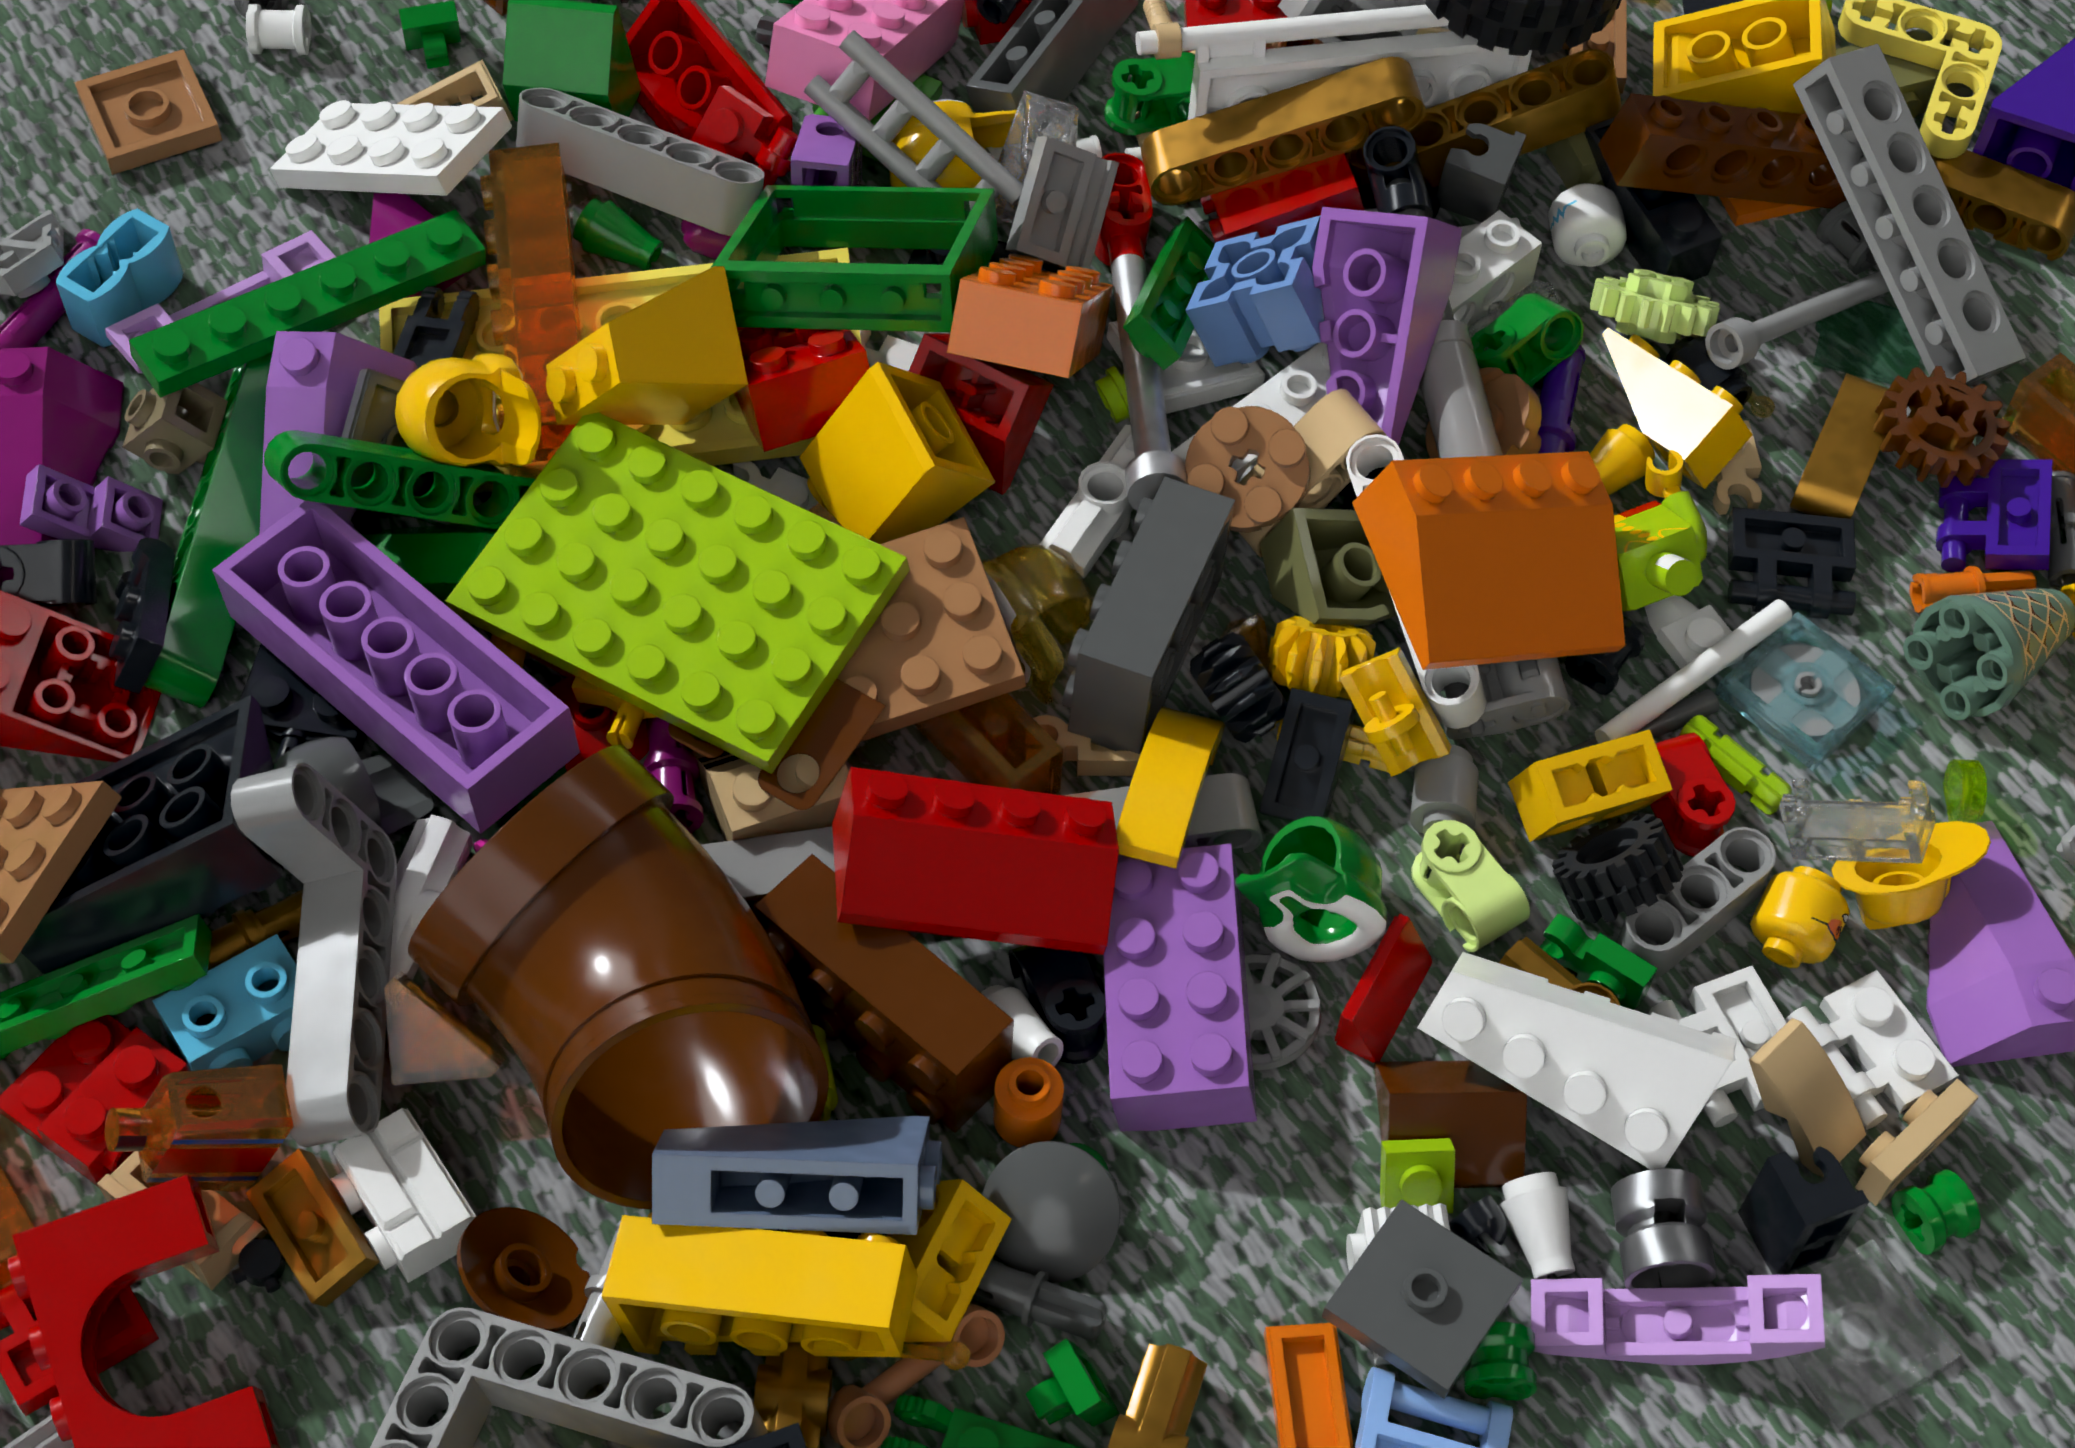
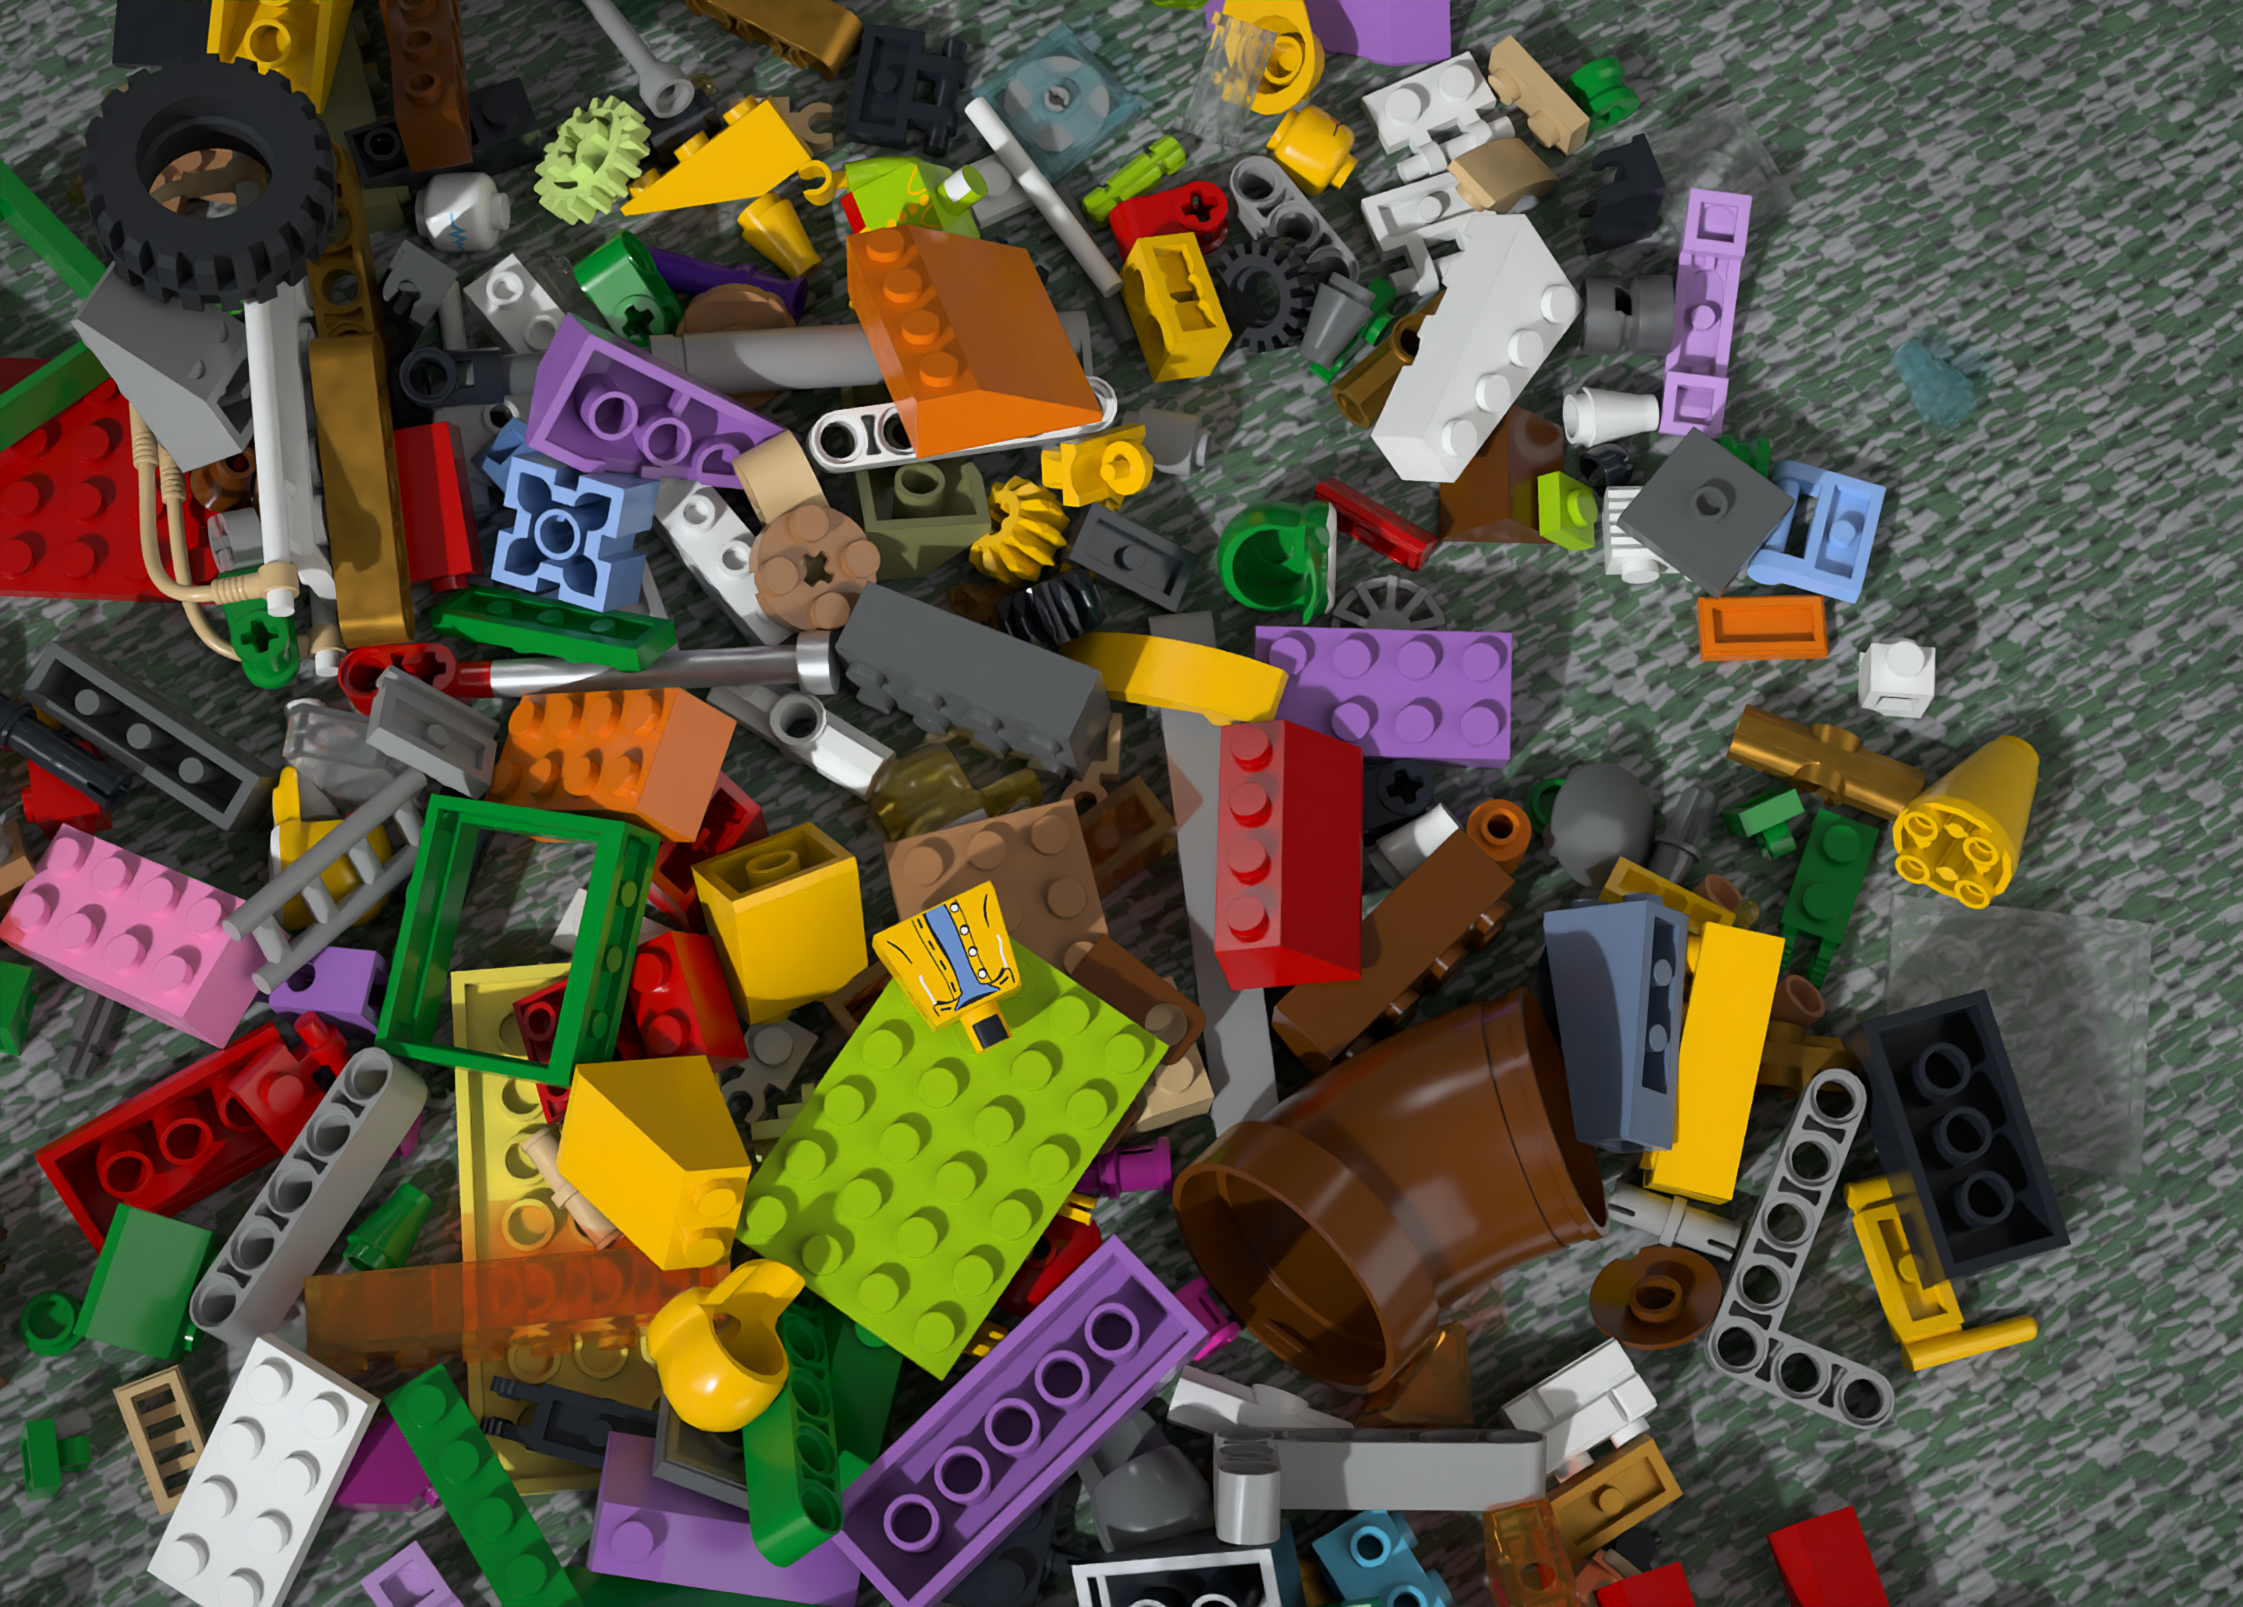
camera: 85 degrees left, 15 degrees up
(826, 545) = (956, 965): none -> yellow torso
(1468, 888) = (1275, 428): yellowish green piece -> none
(1595, 916) = (1335, 319): none -> dark grey cone

